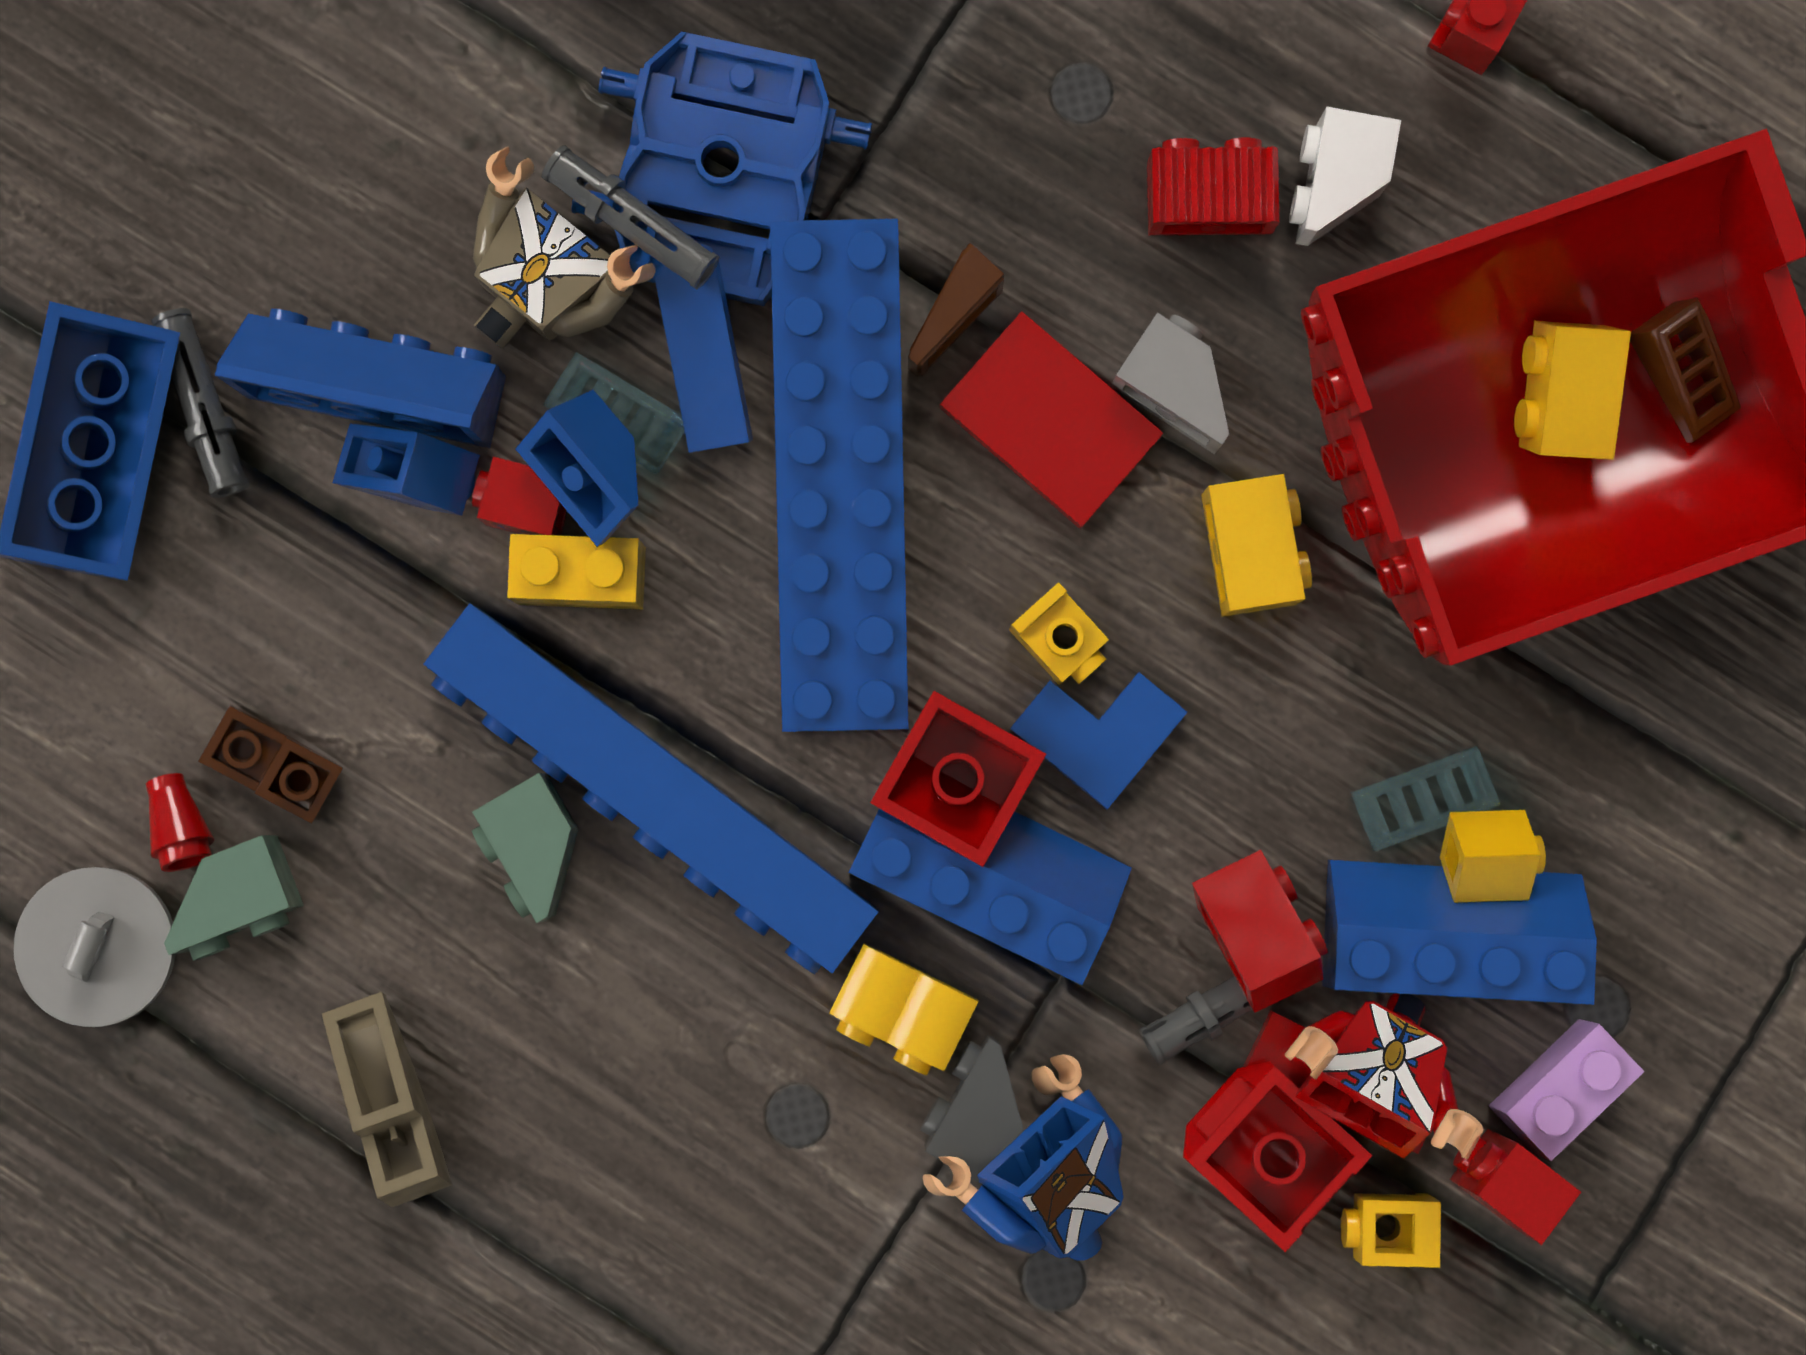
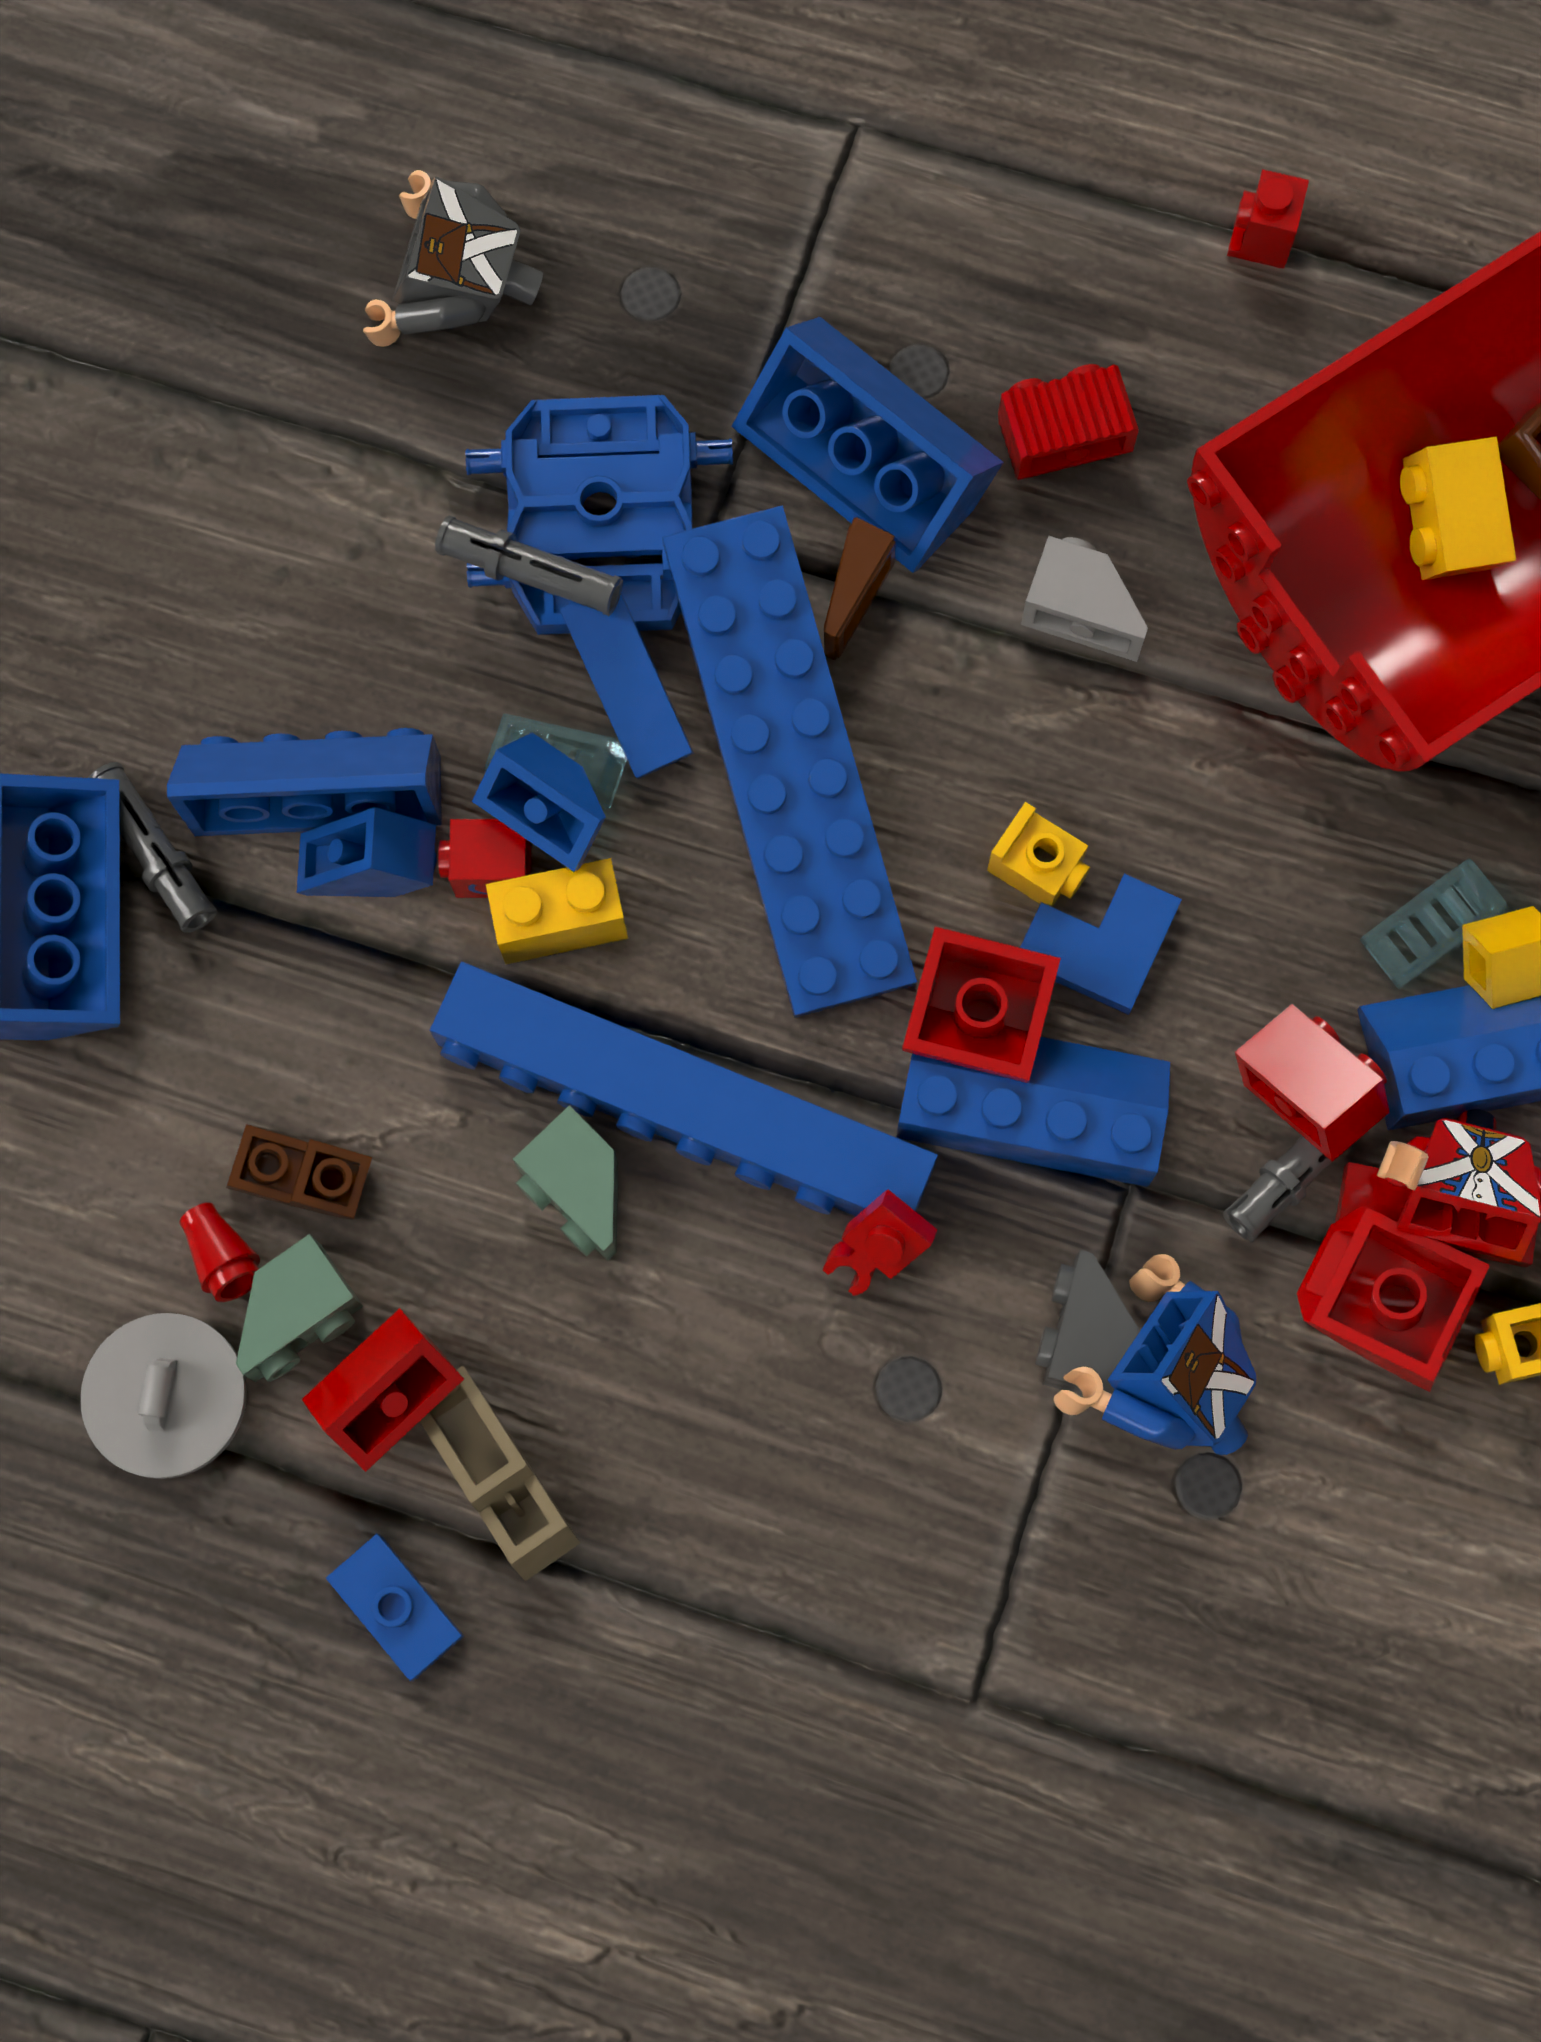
camera: 10 degrees left, 10 degrees down
(266, 1200) = (395, 1607): none -> blue plate
(297, 1000) = (382, 1390): none -> red brick
(542, 264) = (454, 639): torso -> none
(805, 977) = (880, 1237): none -> red plate
(902, 1008) = (987, 1250): yellow brick -> none
(1005, 159) = (865, 440): none -> blue slope
(1051, 420) = (973, 666): red tile -> none
(1255, 544) = (1201, 728): yellow brick -> none
(1348, 169) = (1186, 374): white slope -> none

